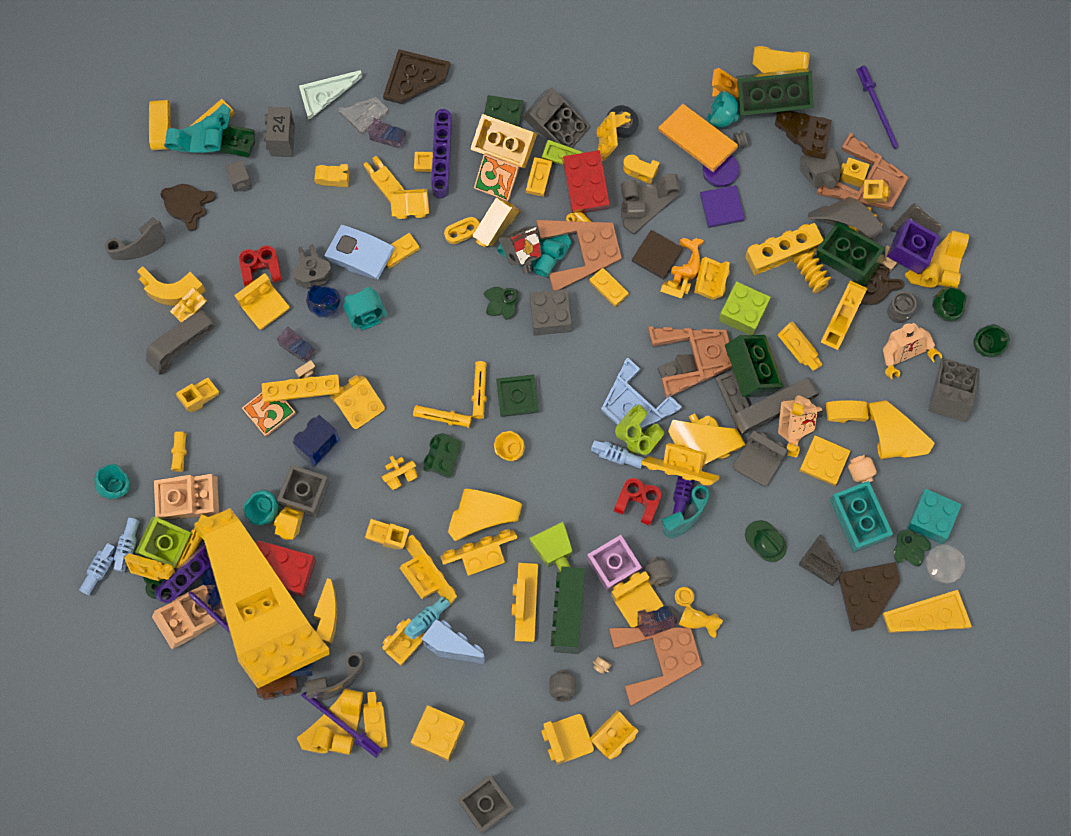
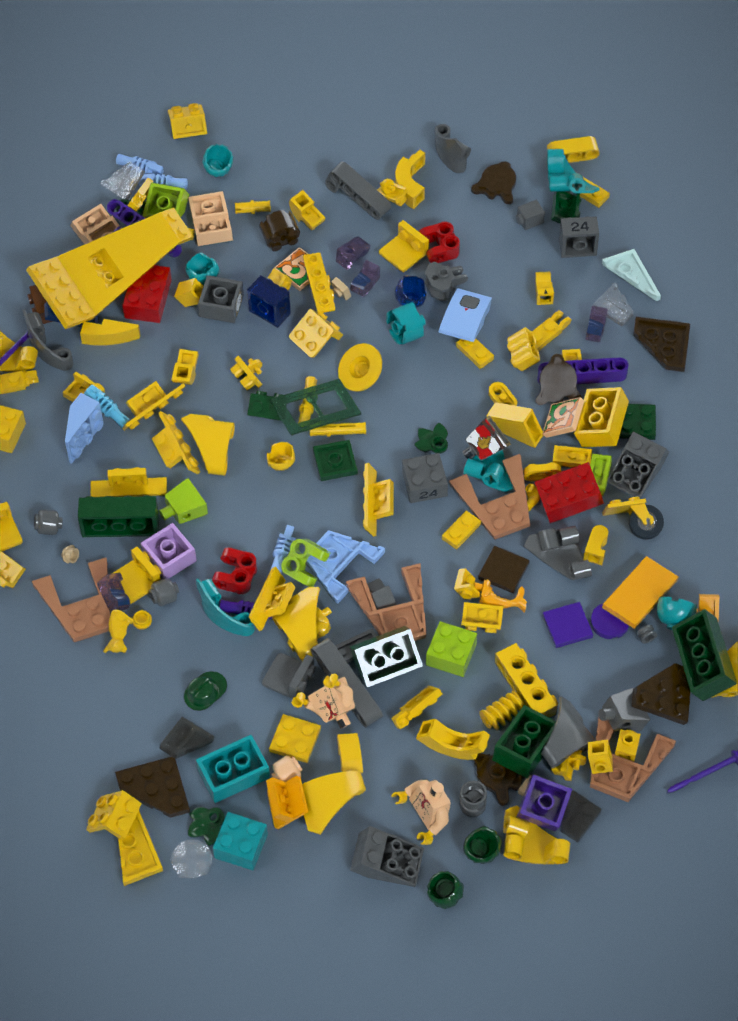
camera: 85 degrees right, 15 degrees down
(41, 512) = (187, 121): none -> yellow bracket
(120, 585) = (124, 180): none -> clear wing
(221, 423) = (279, 230): none -> dark brown brick
(258, 354) = (351, 252): none -> clear purple leg
(285, 432) = (280, 279): none -> yellow bracket
(411, 359) = (360, 367): none -> yellow hat
(439, 410) = (311, 396): none -> clear green door
(456, 175) = (557, 381): none -> tile
(553, 197) = (537, 472): none -> yellow plate
(568, 357) = (377, 499): none -> yellow bracket
(898, 470) = (286, 800): none -> light orange bracket
(903, 633) = (114, 813): none -> yellow bracket

